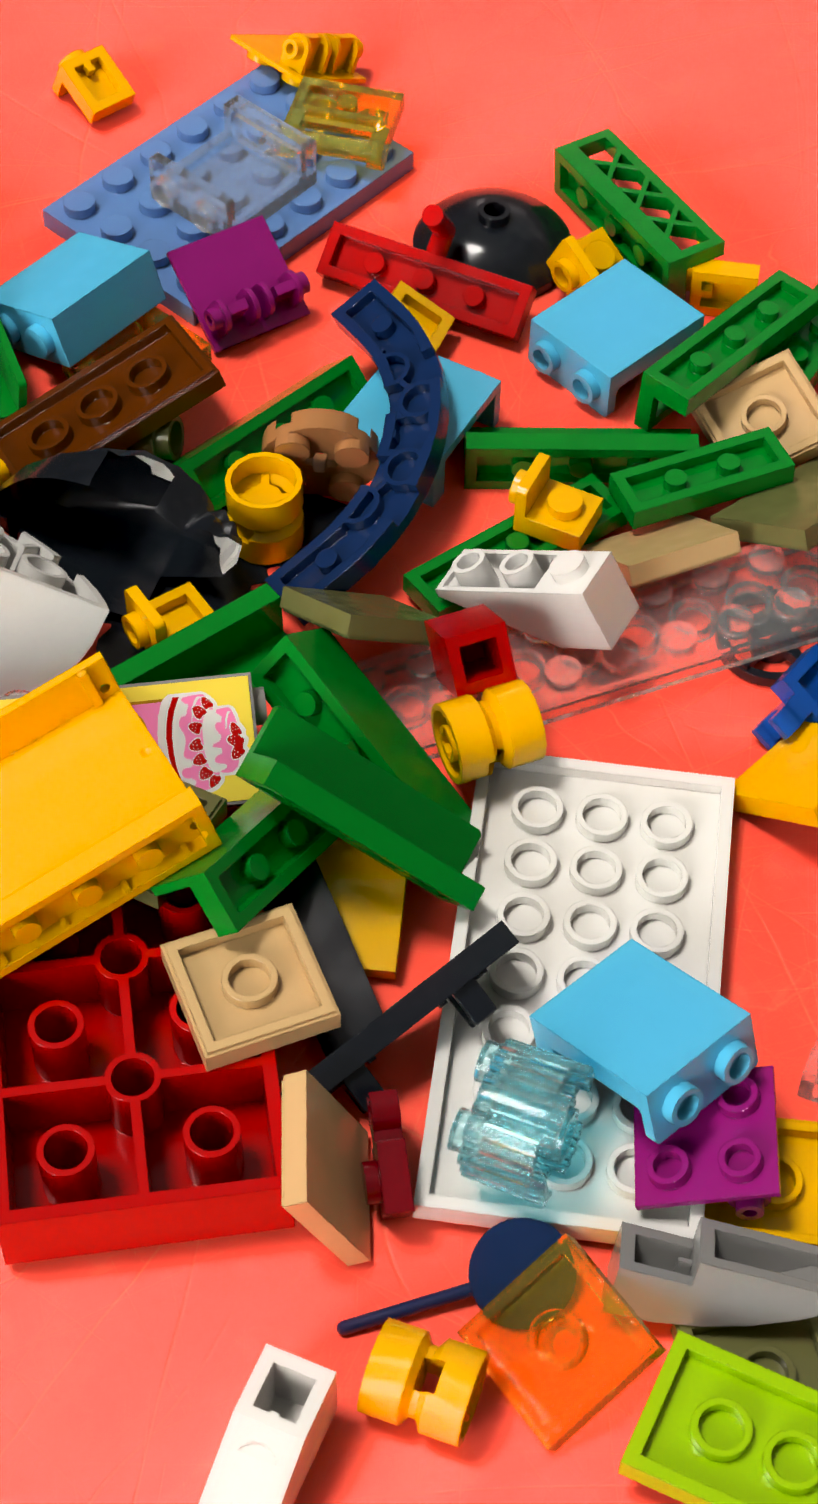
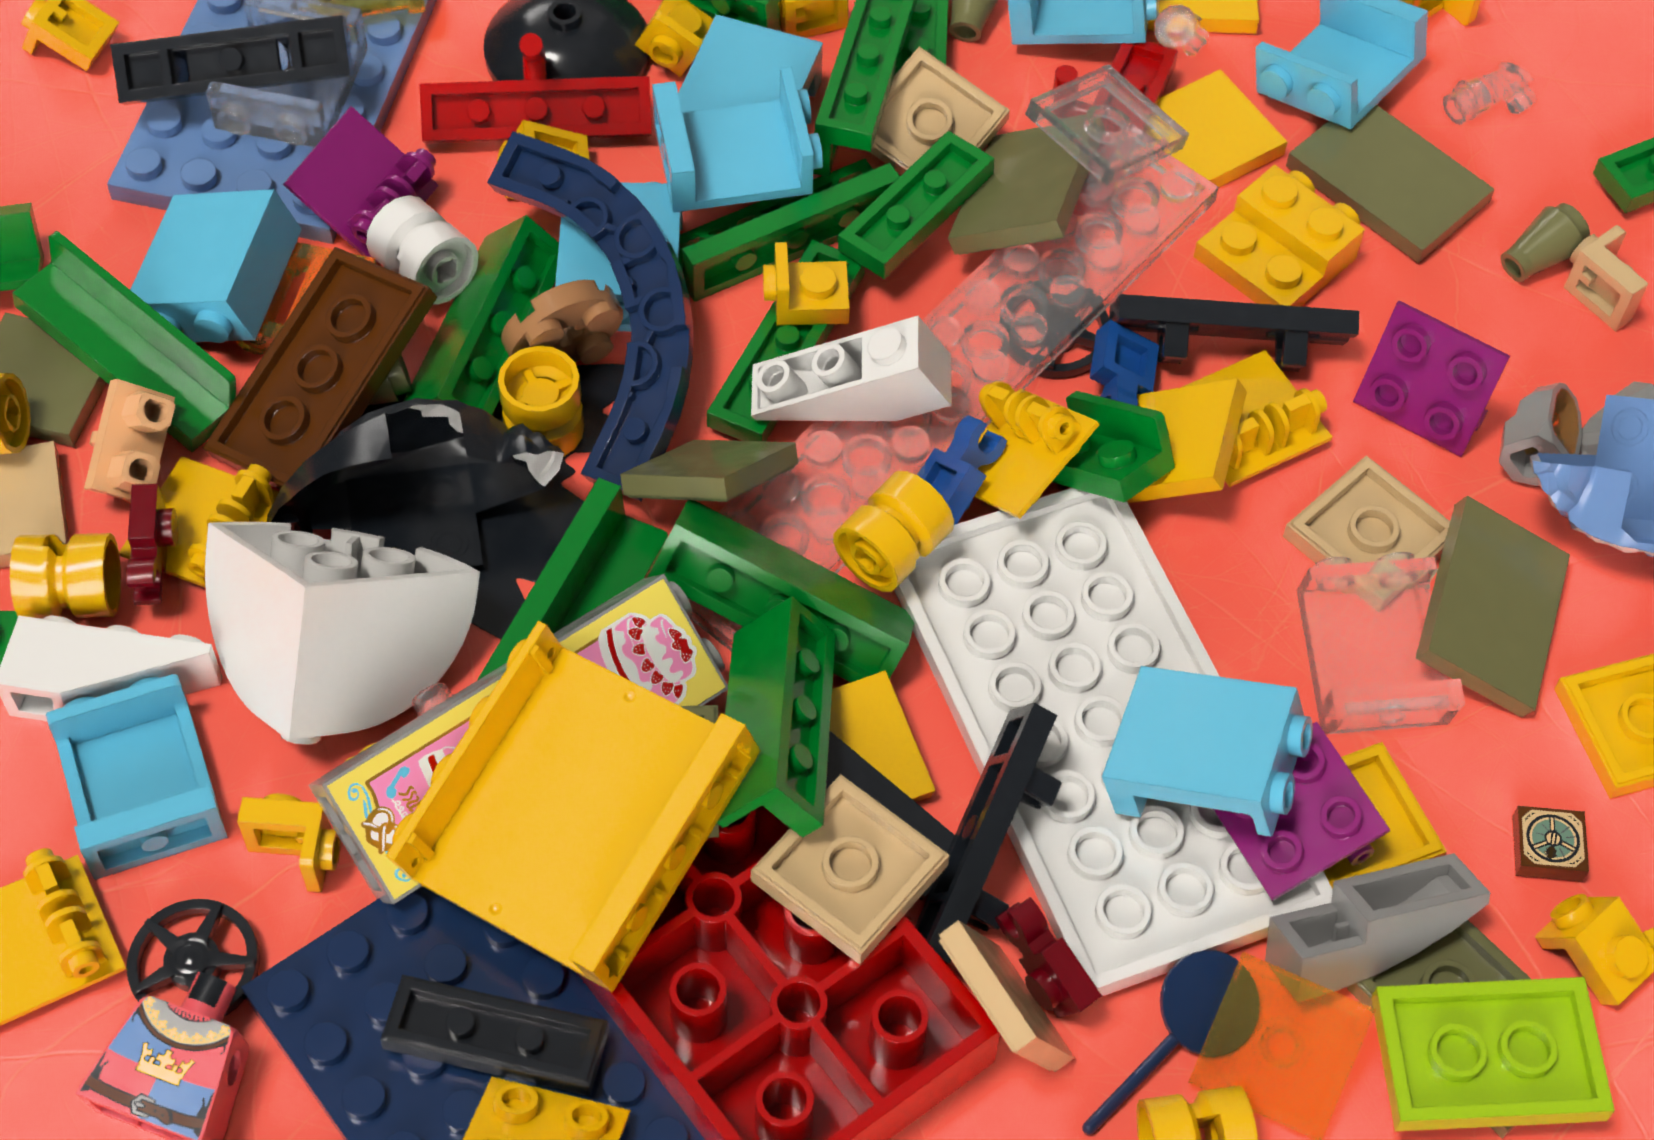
camera: 30 degrees left, 5 degrees up
(163, 616) = (517, 553): yellow bracket -> none
(192, 141) = (236, 56): none -> black hinge
(250, 350) = (422, 246): none -> white wheel
(363, 806) = (848, 655): green panel -> none
(470, 650) = (835, 462): red brick -> none
(520, 1119) = (1155, 872): clear light blue brick -> none
(559, 369) = (736, 150): none -> medium azure panel
(584, 713) = (956, 471): none -> blue plate
(668, 548) = (925, 285): tan tile -> none
(673, 712) = (1038, 445): none -> yellow hinge
(740, 757) = (1122, 453): none -> green bracket

